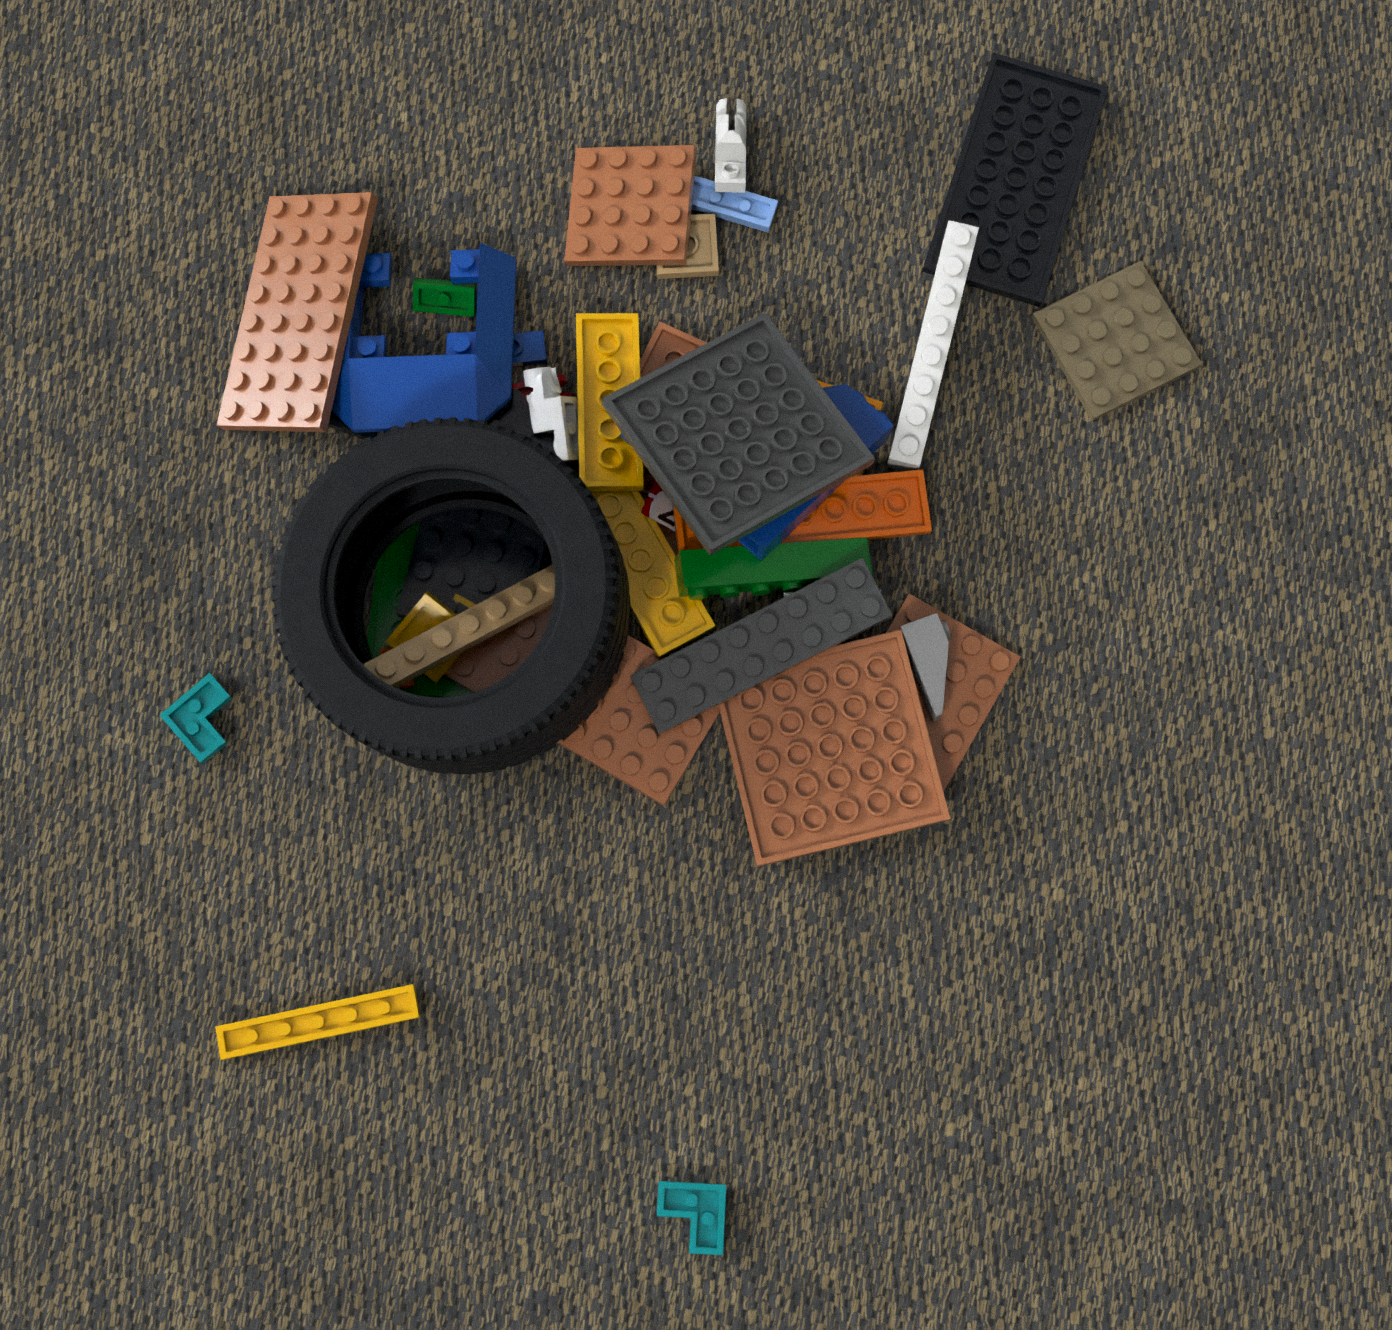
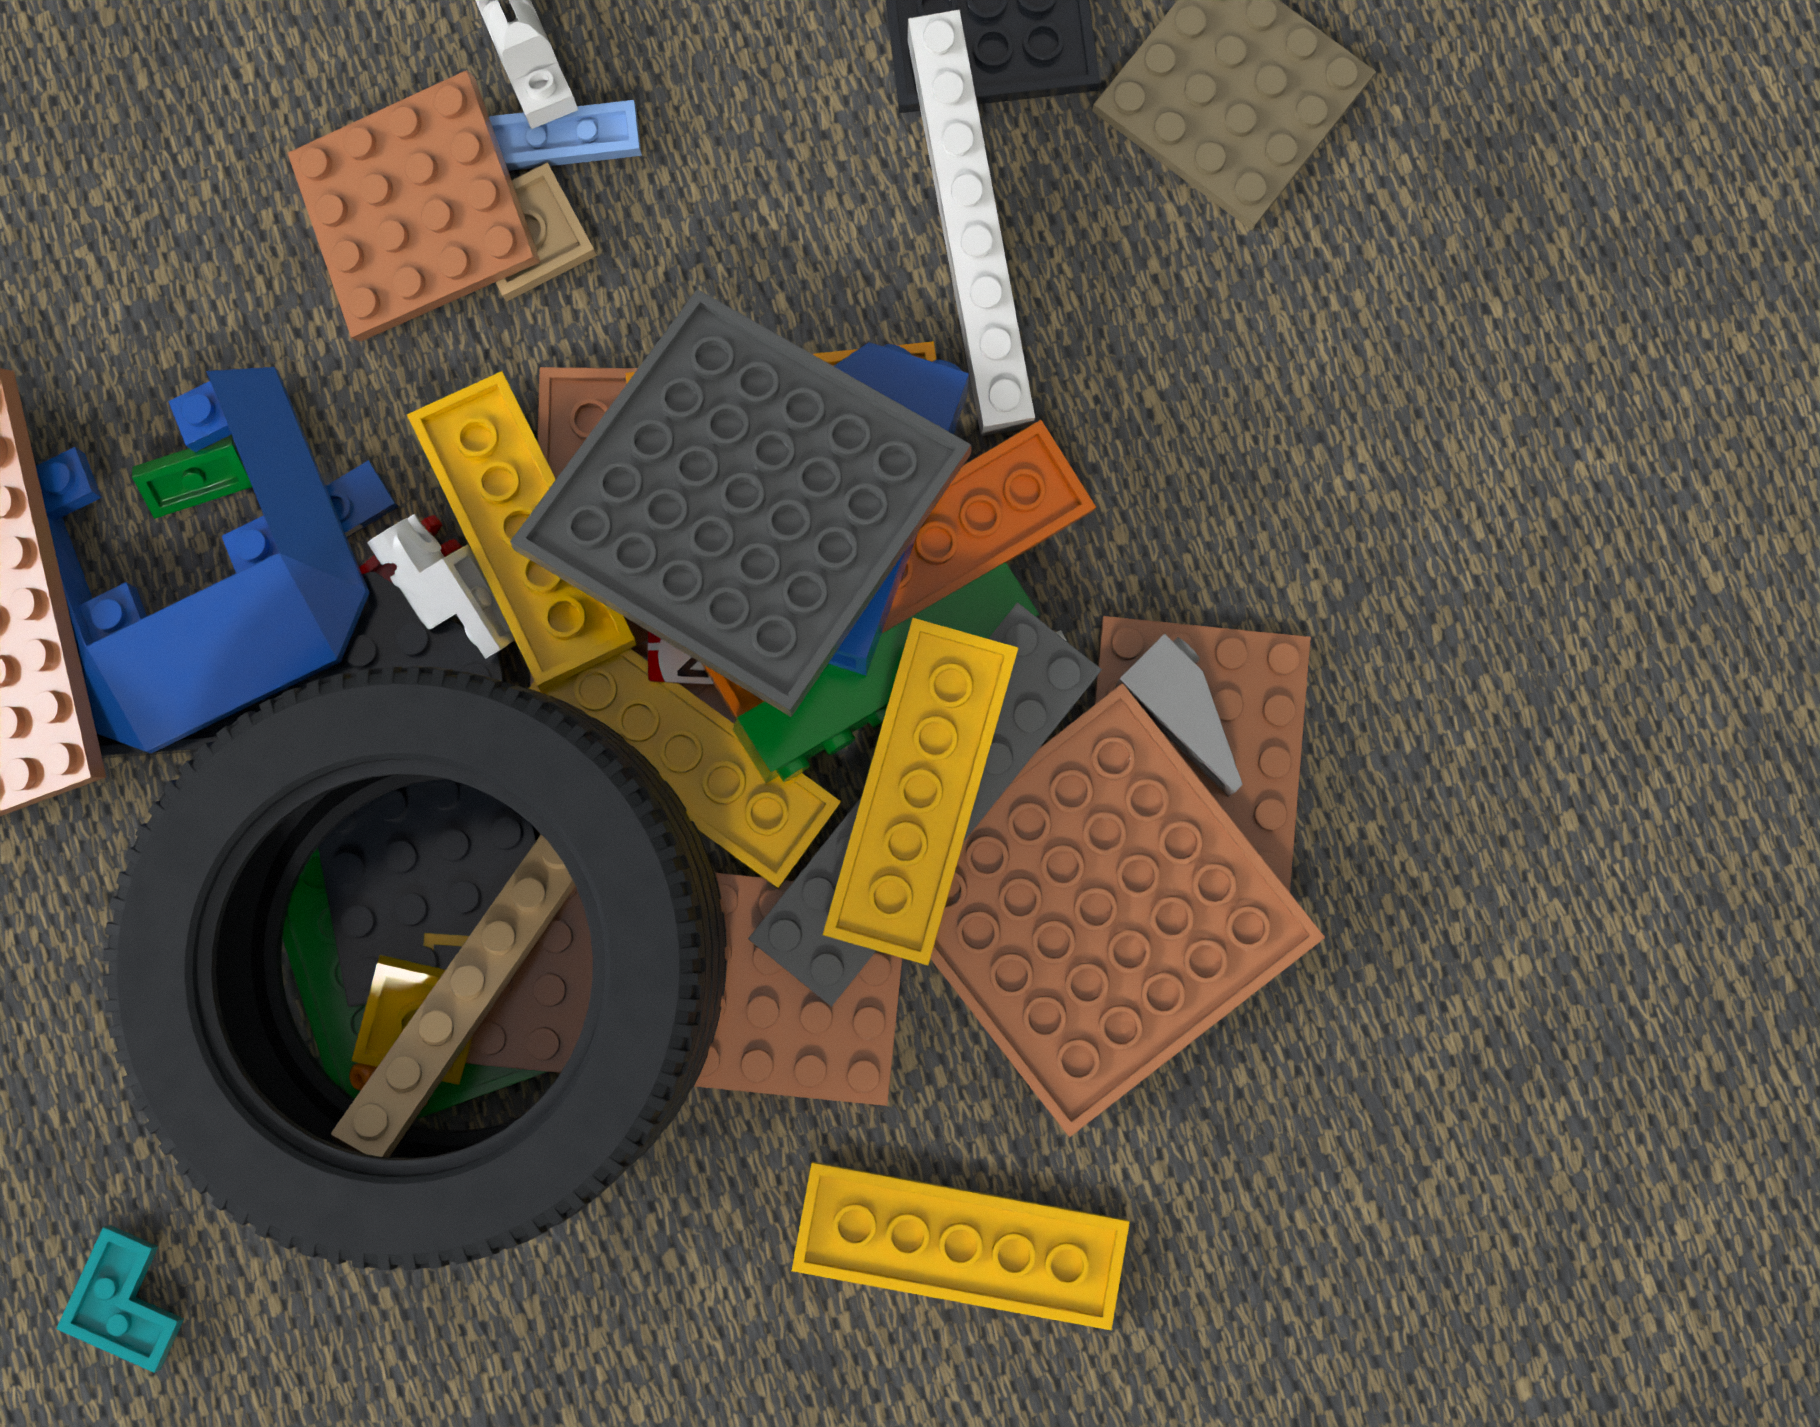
camera: 25 degrees left, 5 degrees up
(669, 899) = (961, 1245): none -> yellow plate
(761, 634) = (920, 791): none -> yellow plate

